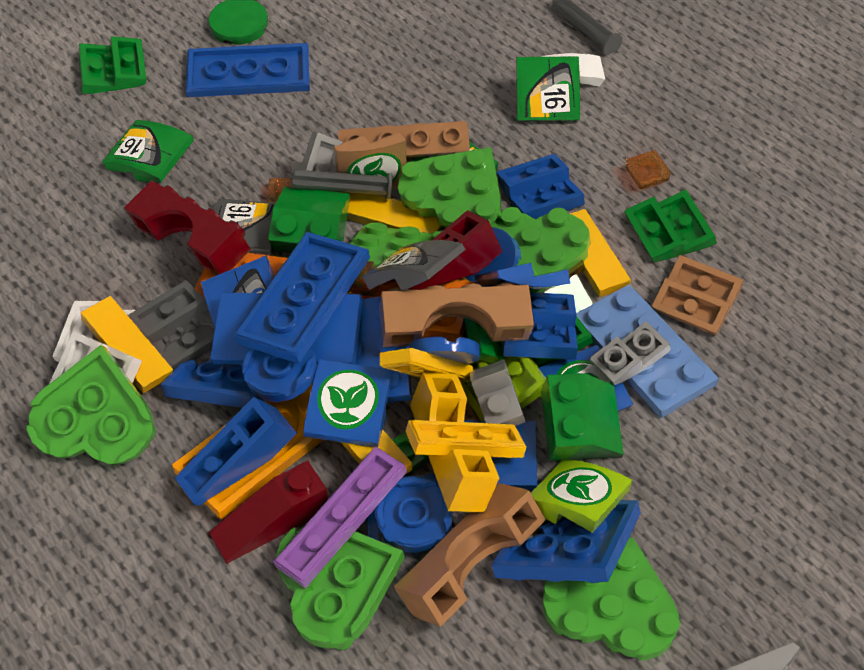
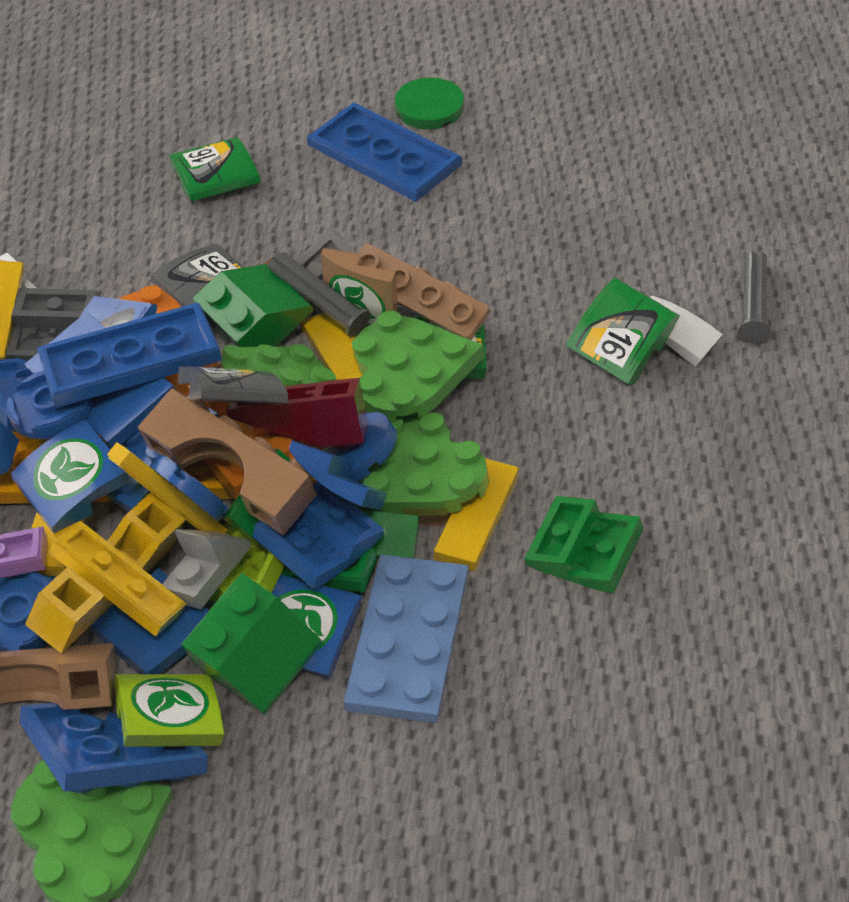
camera: 45 degrees right, 5 degrees down
(112, 66) = (277, 80): green slope -> none
(213, 241) = (148, 267): dark red arch -> none
(540, 186) = (506, 420): blue slope -> none
(632, 355) = (360, 624): light grey slope -> none
(647, 169) = (629, 473): clear orange plate -> none
(697, 295) = (524, 626): medium nougat slope -> none

